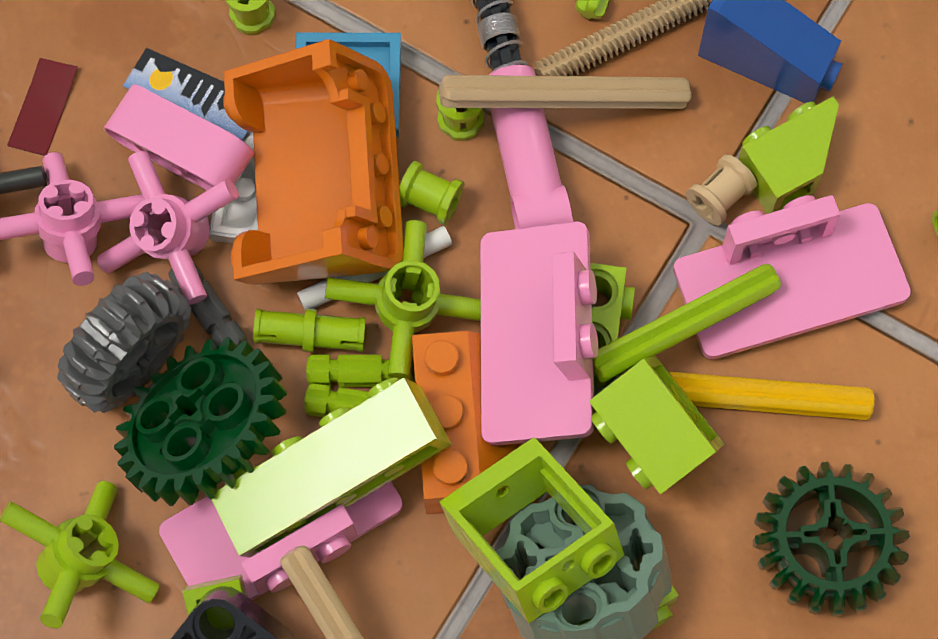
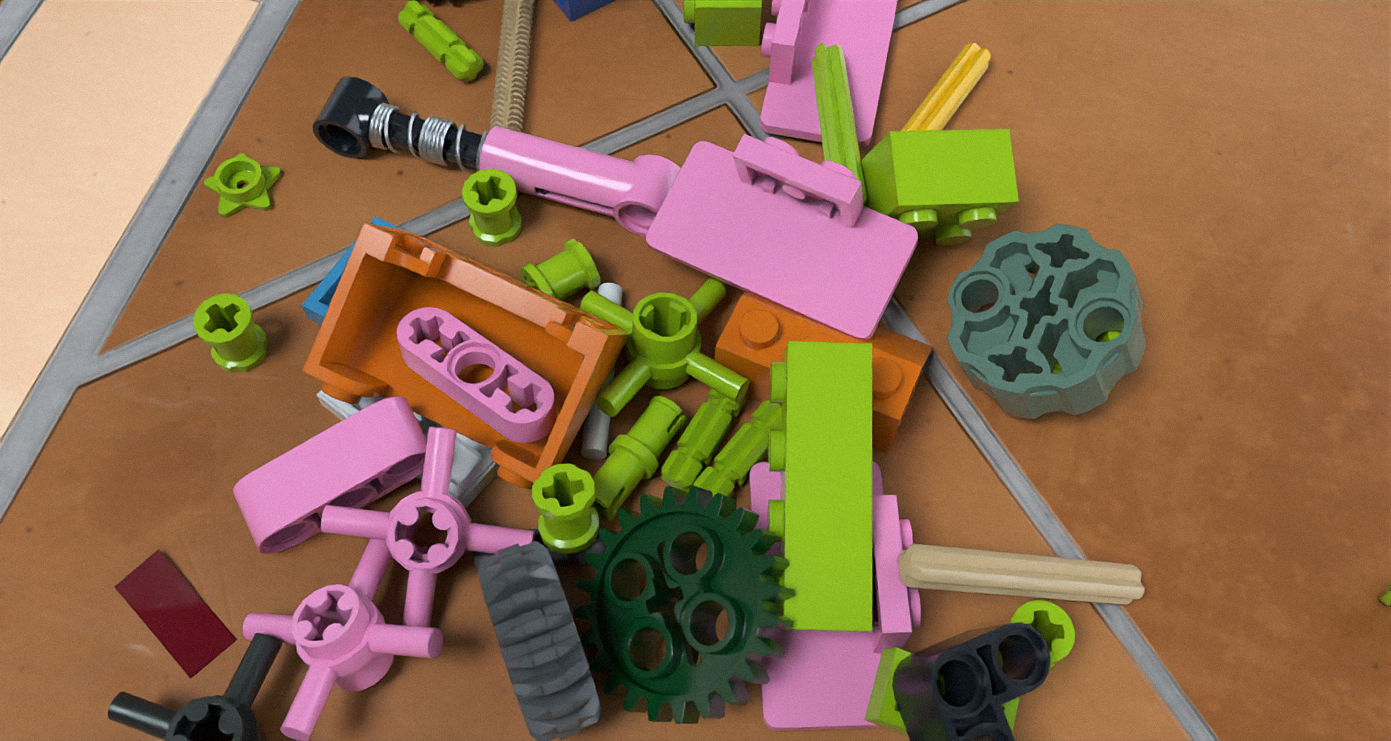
camera: 65 degrees left, 10 degrees down
(184, 87) = (270, 441): sticker -> none
(228, 290) = (565, 508): none -> lime bush
(286, 162) = (483, 399): none -> bright pink beam
(524, 478) = (982, 279): lime window -> none
(563, 92) = (542, 111): tan axle -> none
(721, 189) = (717, 55): tan bush -> none
(854, 535) = (1129, 142): dark green gear -> none

